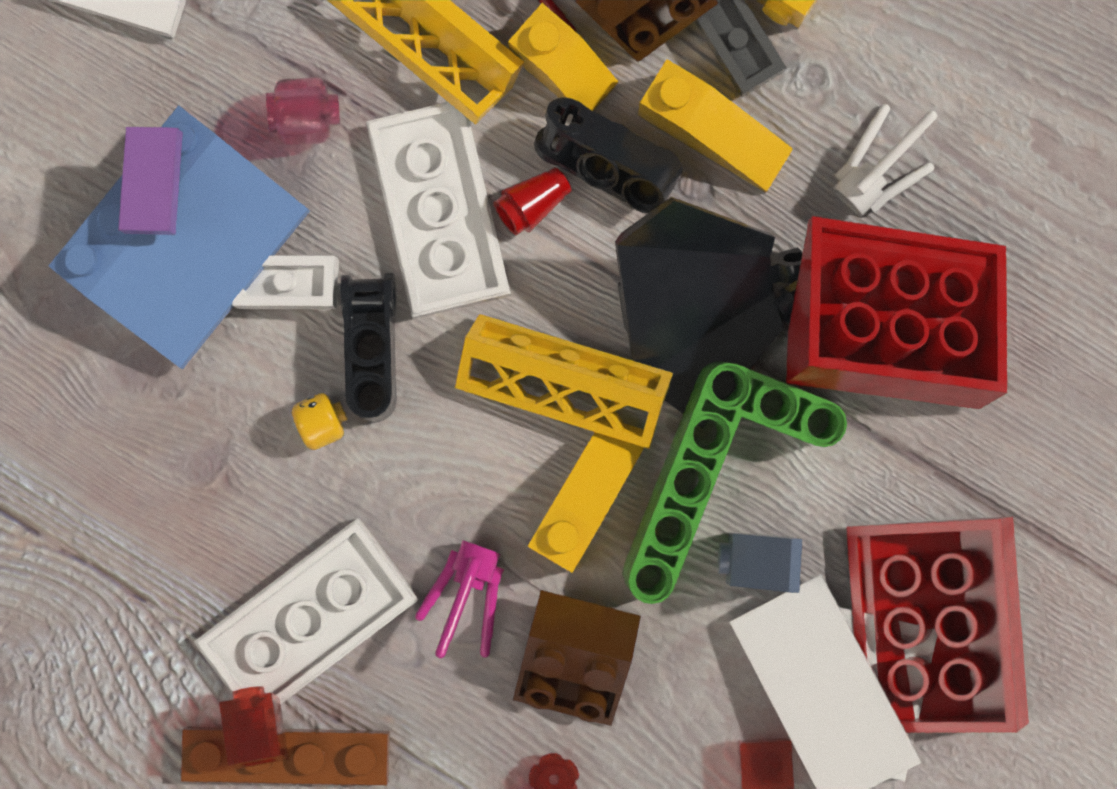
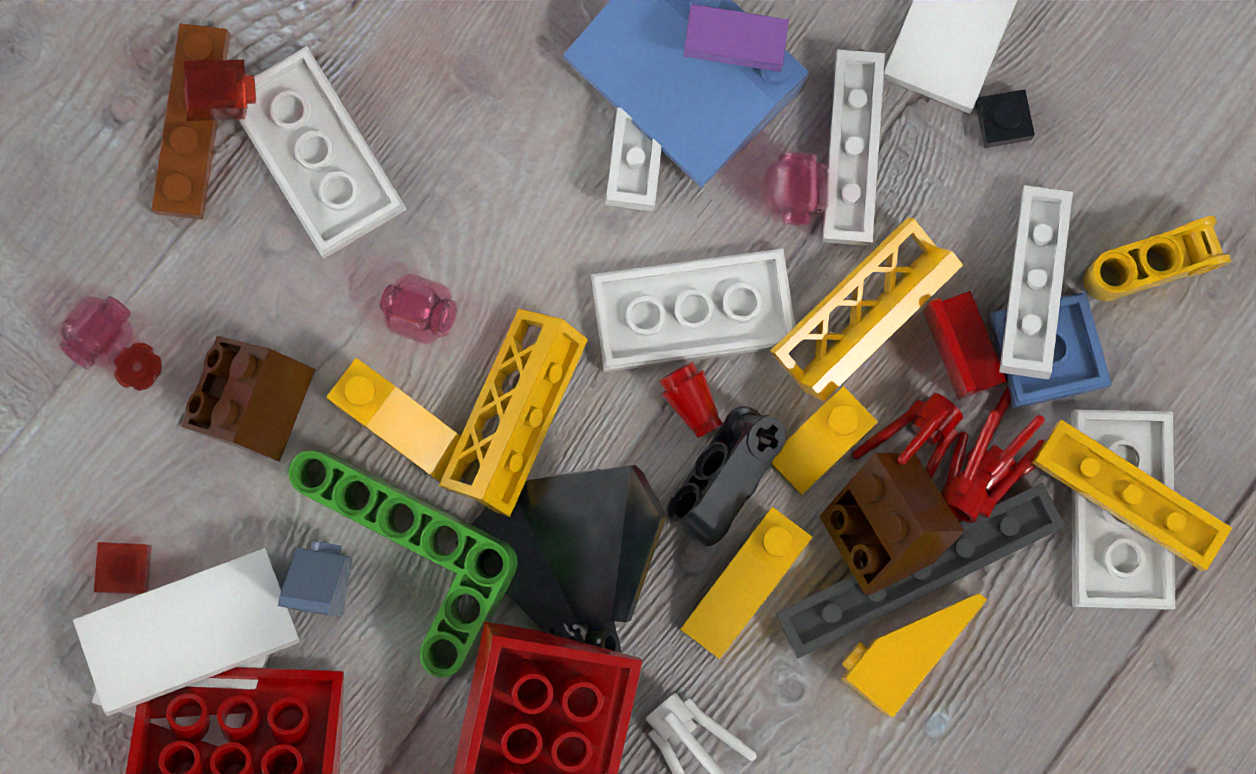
camera: 85 degrees right, 5 degrees down
(250, 57) = (854, 147): none -> white plate
(319, 421) = (499, 178): yellow piece -> none
(369, 310) = (592, 223): black piece -> none
(466, 490) = (418, 308): none -> clear pink head
(472, 568) = (345, 310): dark pink plant -> none

